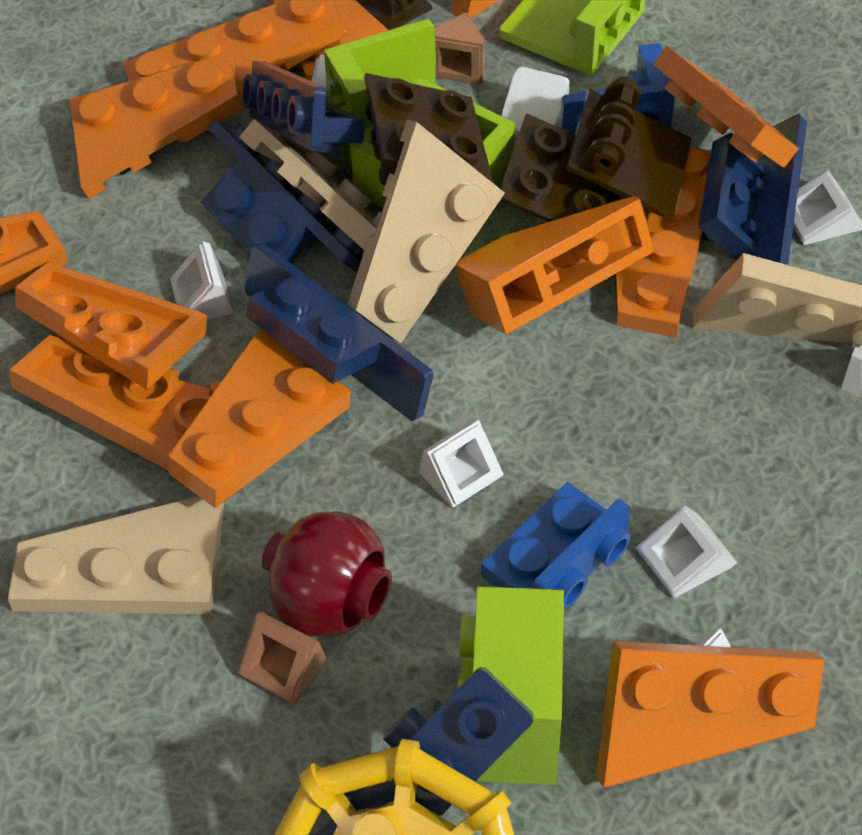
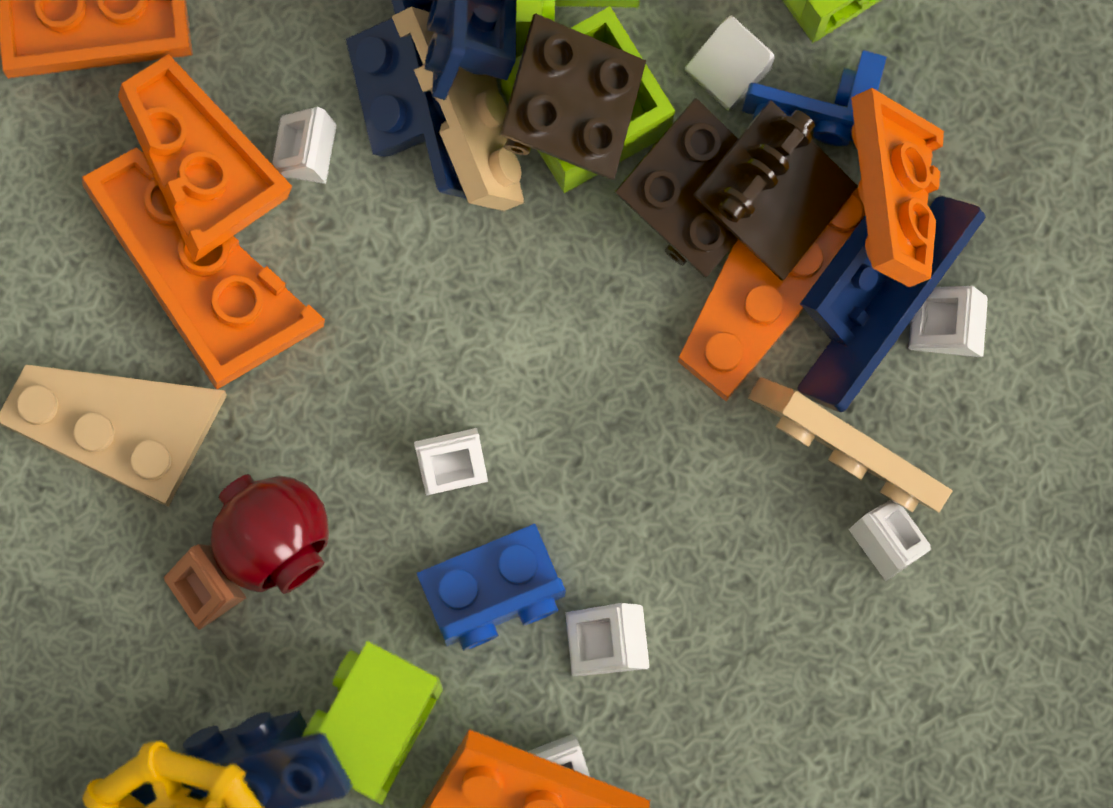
camera: 20 degrees right, 25 degrees up
(254, 420) = (282, 334): orange wing -> none
(331, 334) = (382, 267): dark blue bracket -> none
(425, 227) = (520, 206): tan wing -> none
(552, 262) = (632, 283): orange slope -> none

